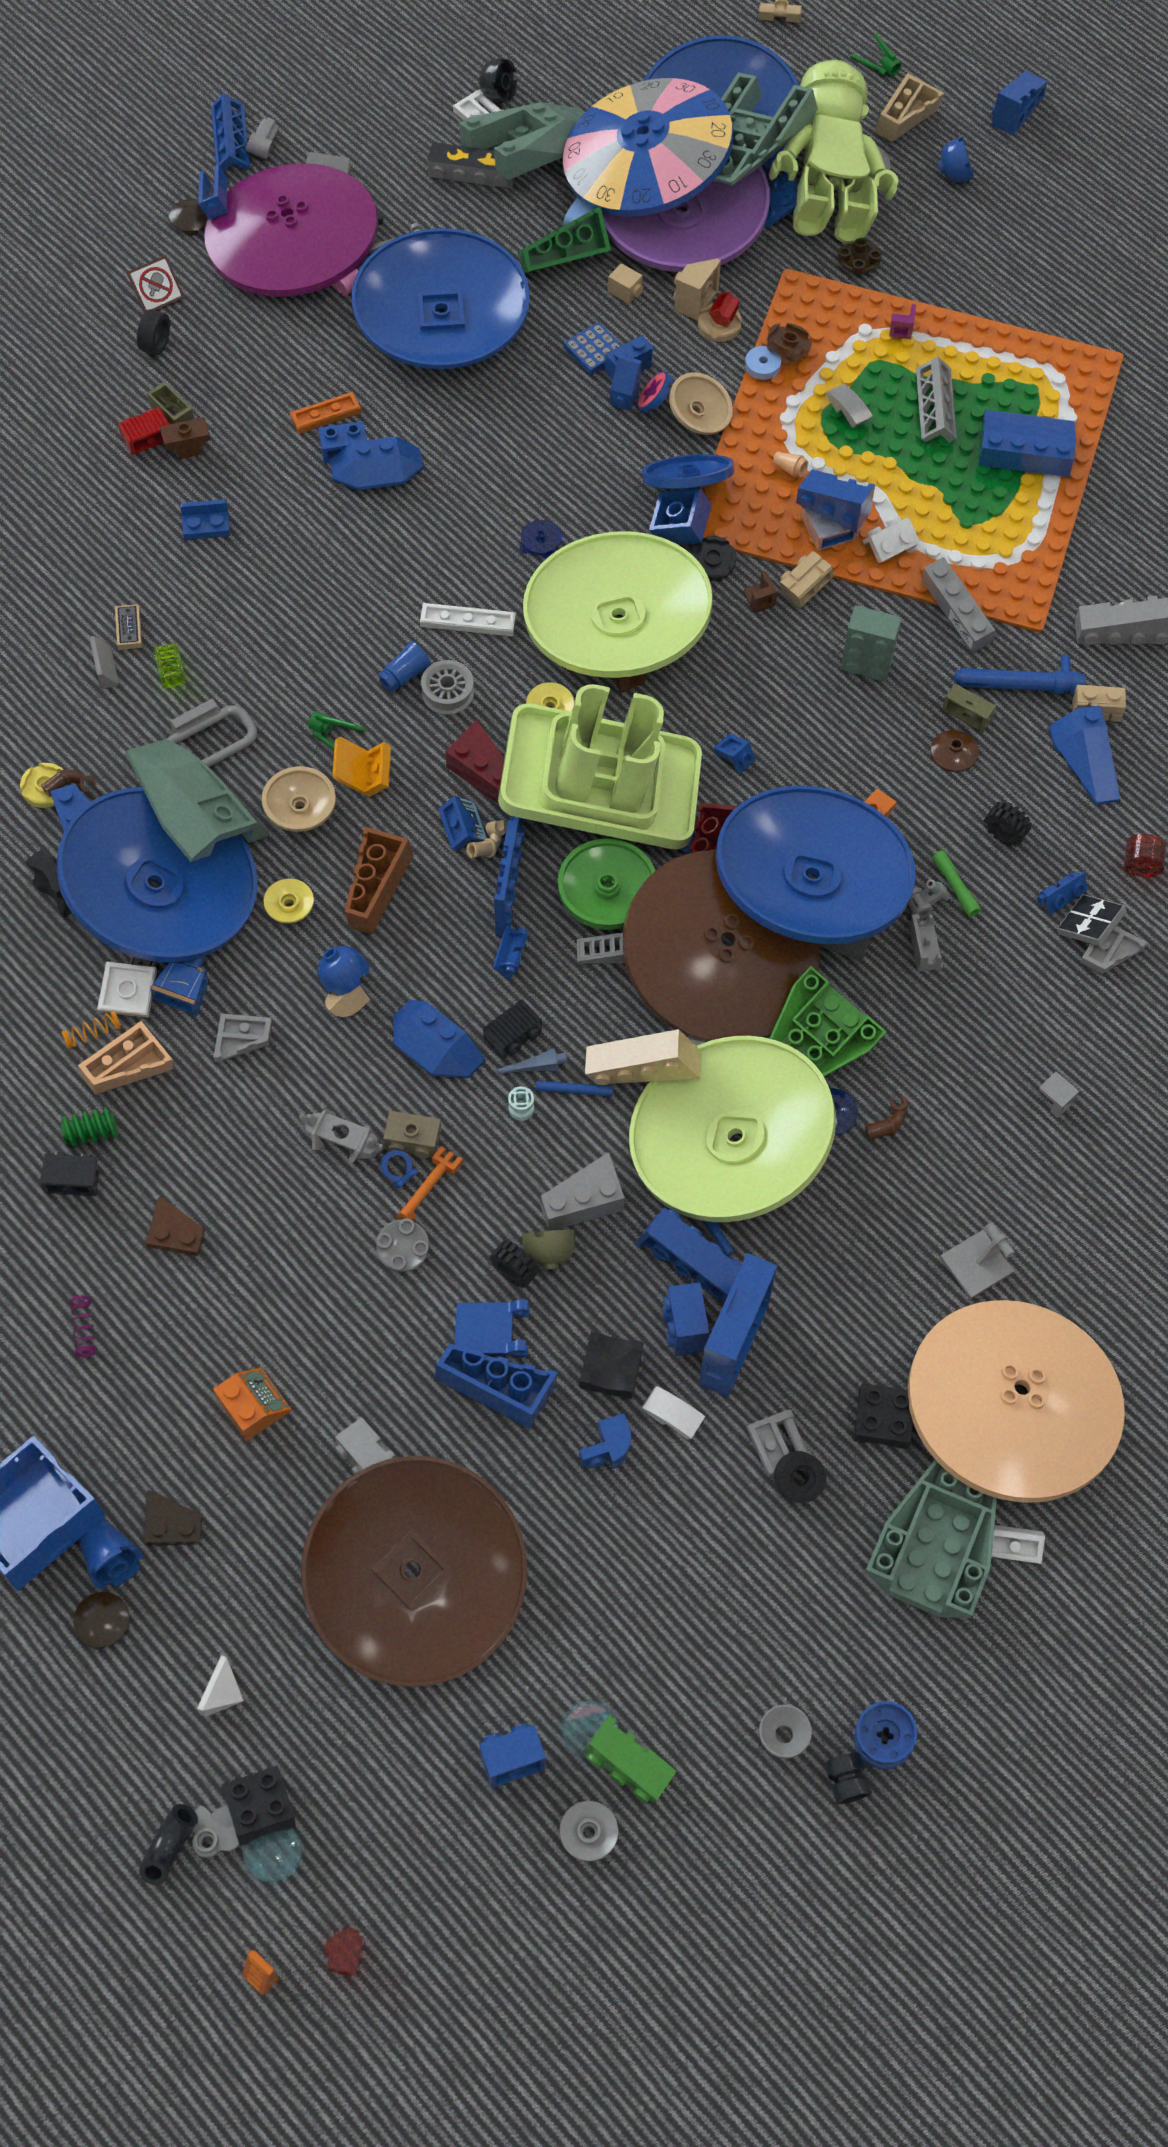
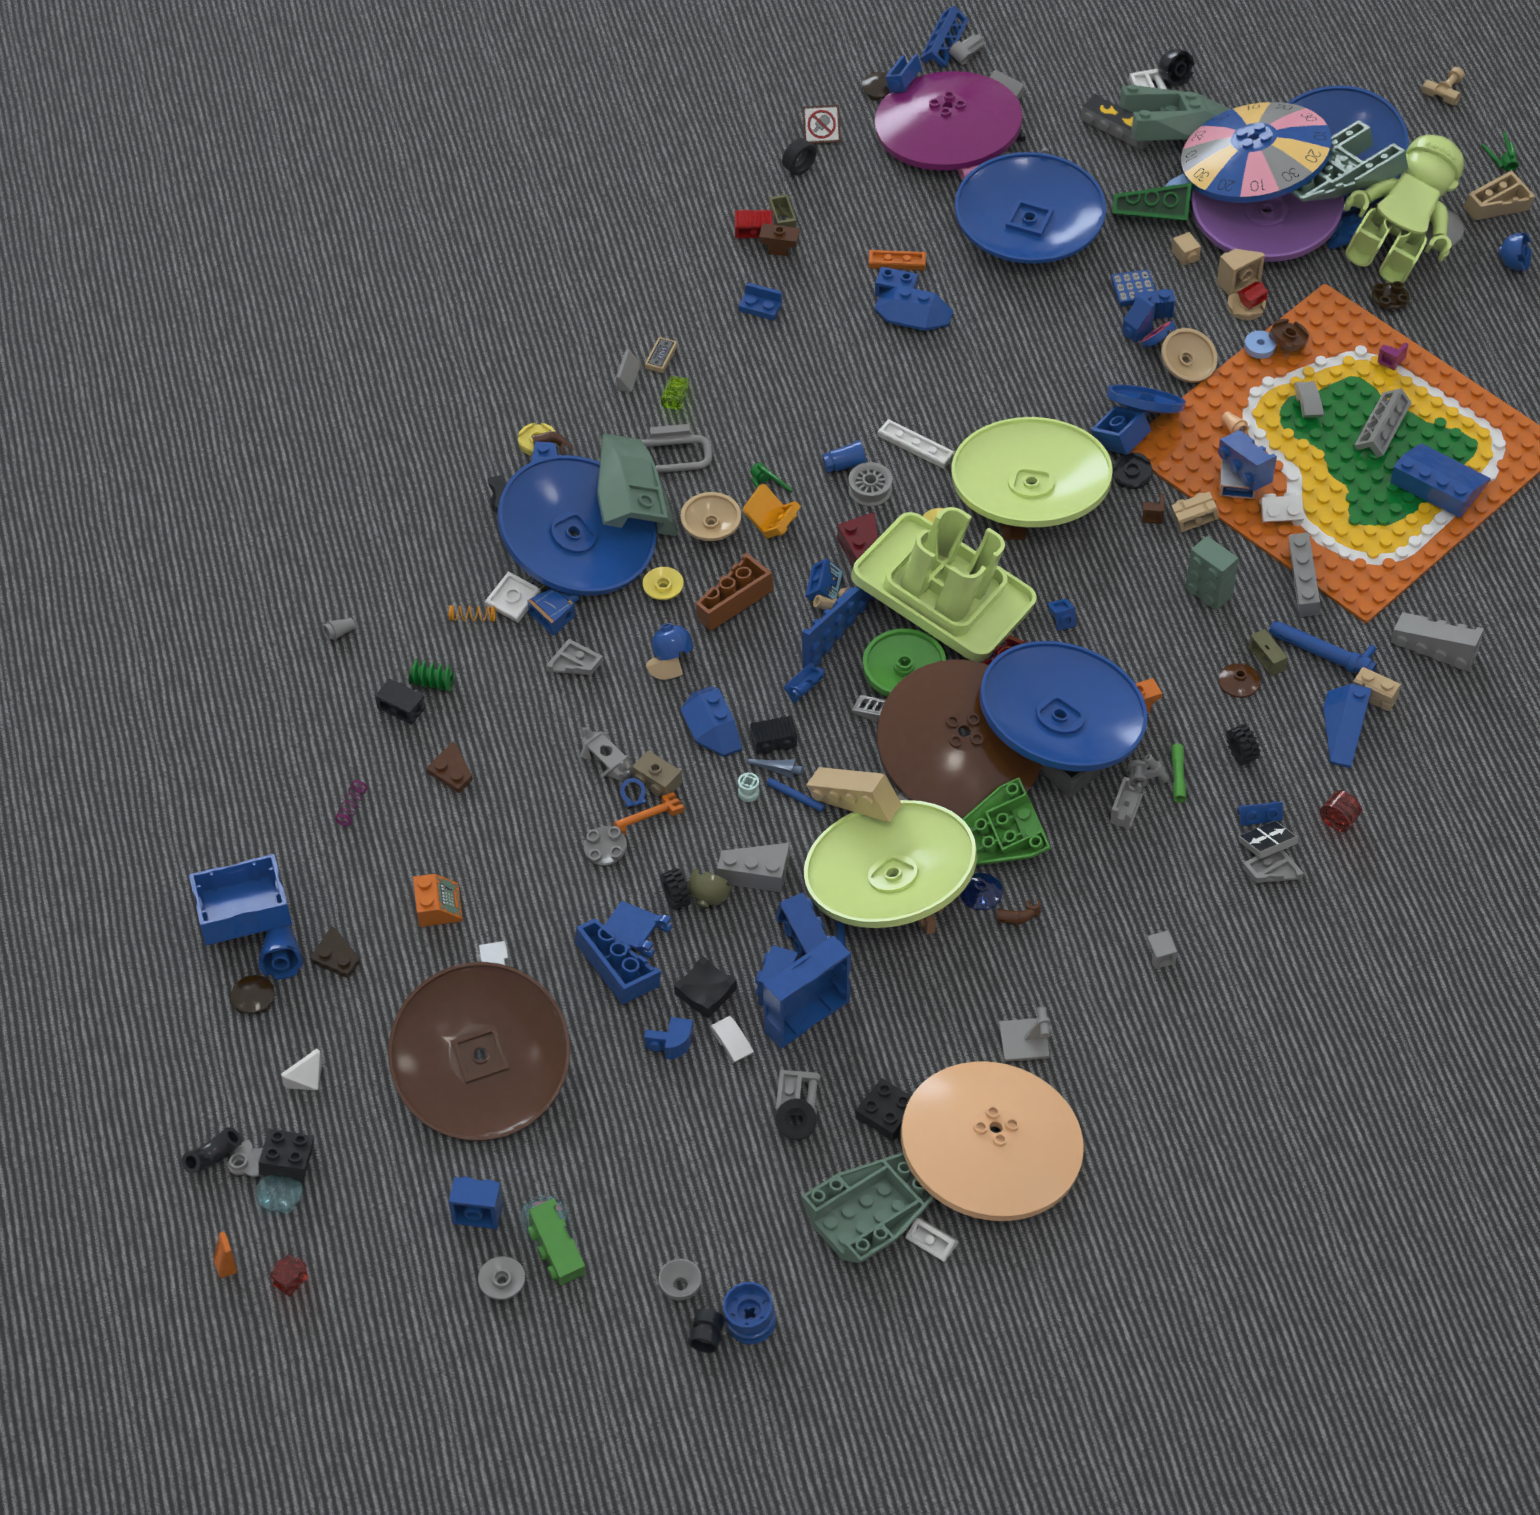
camera: 30 degrees right, 10 degrees down
(125, 1060) = (481, 641): light nougat wedge -> none
(540, 538) = (1006, 406): clear blue piece -> none

